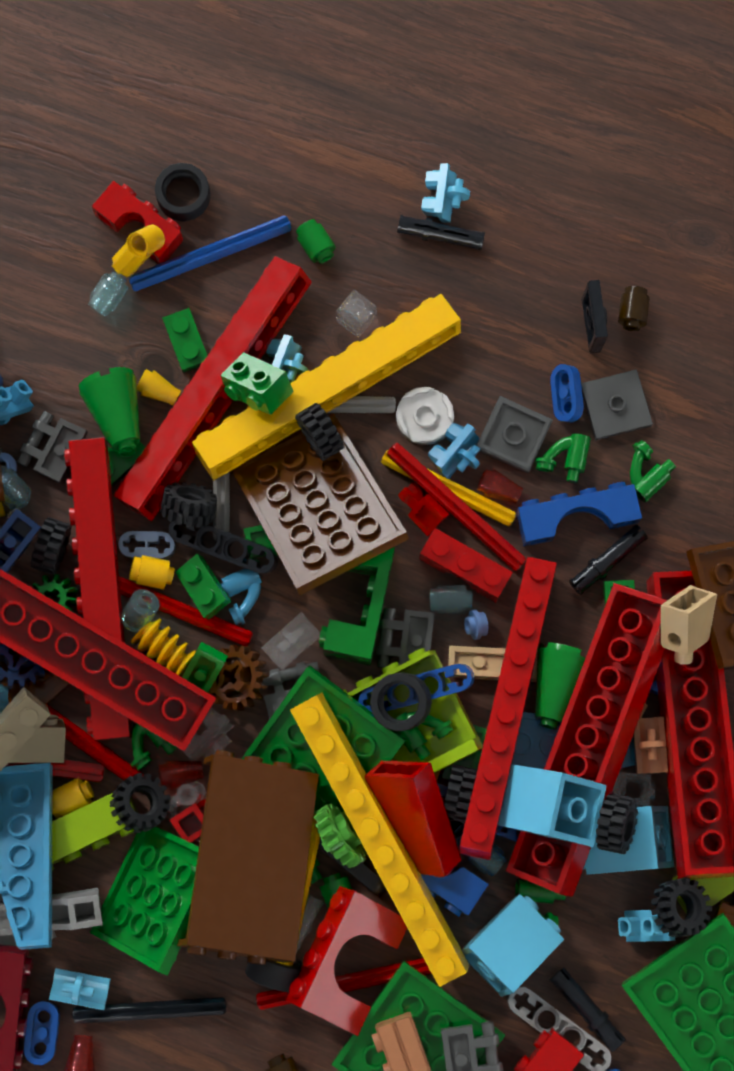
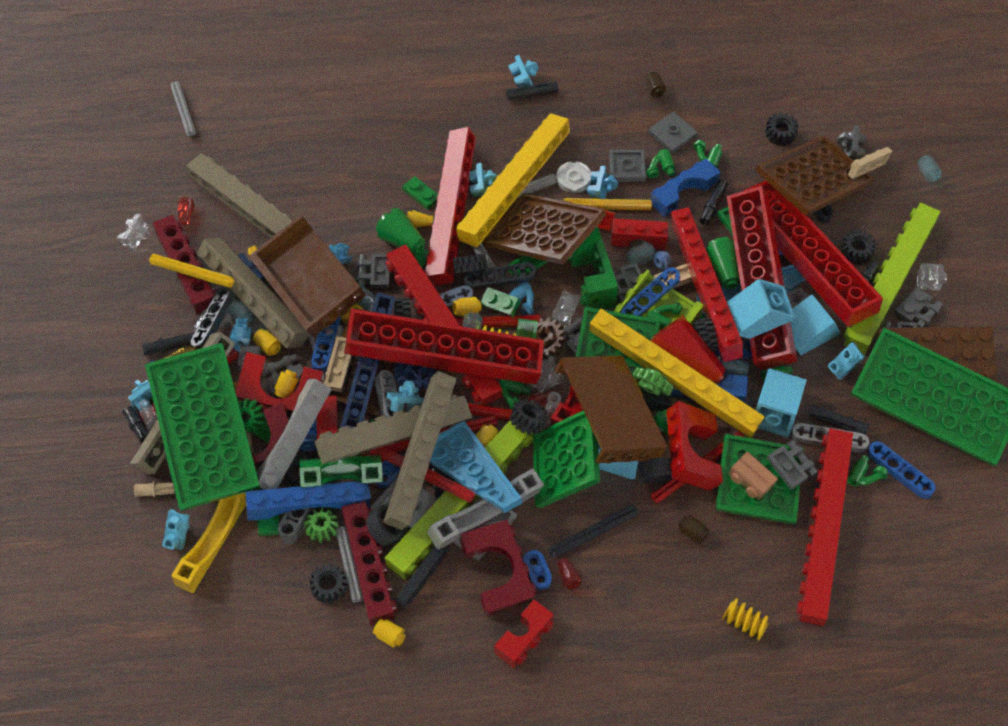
camera: 25 degrees left, 20 degrees down
(80, 989) = (547, 533): medium azure hips -> none
(108, 293) = (365, 185): clear light blue brick -> none
(119, 206) = (351, 142): red arch -> none
(138, 249) = (372, 155): yellow piece -> none
(178, 171) = (377, 114): black tyre -> none
(210, 253) = (410, 148): blue axle -> none
(256, 383) = (476, 186): green brick -> none
(315, 241) = (467, 118): green brick -> none
(319, 431) = (524, 193): black tyre -> none
(356, 313) = (509, 141): clear brick -> none
(381, 714) = (650, 286): black tyre -> none
(456, 506) = (613, 206): red axle -> none
(497, 486) = (633, 191): clear red cone -> none
(566, 394) = (643, 138): blue plate -> none
(594, 316) = (638, 92): black plate -> none
(616, 824) = (800, 306): black tyre -> none
(650, 746) = (793, 272): nougat hips -> none
(668, 913) = (859, 336): black tyre -> none
(687, 622) = (774, 190): tan torso -> none

